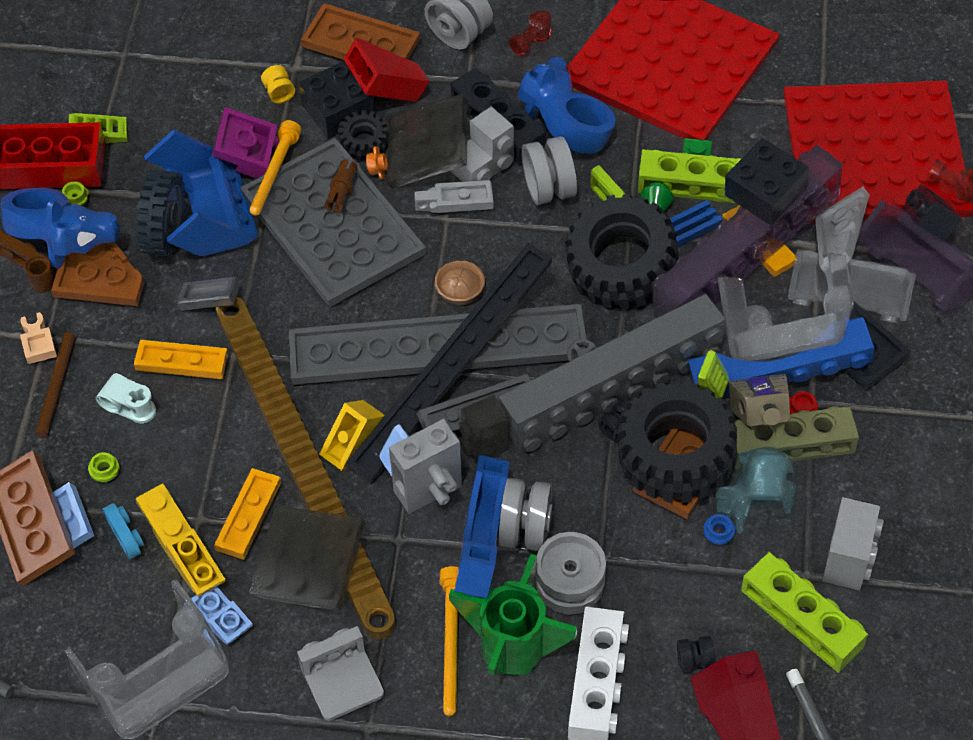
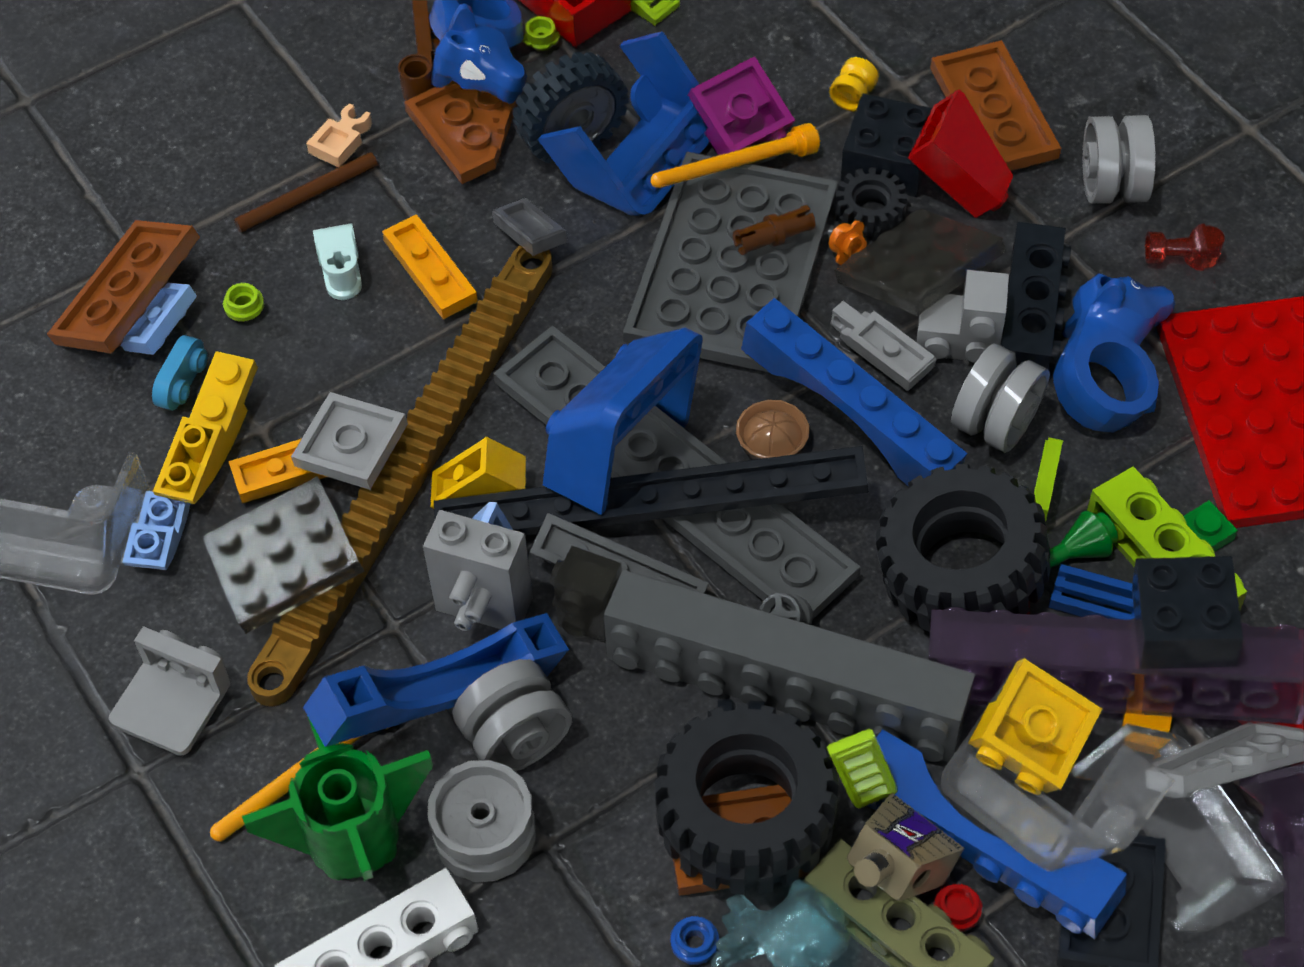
camera: 50 degrees right, 0 degrees up
(270, 472) = (349, 440): none -> light grey plate
(402, 328) = (584, 433): none -> blue windscreen
(433, 230) = (797, 352): none -> blue arch
(755, 294) = (1034, 729): none -> yellow plate

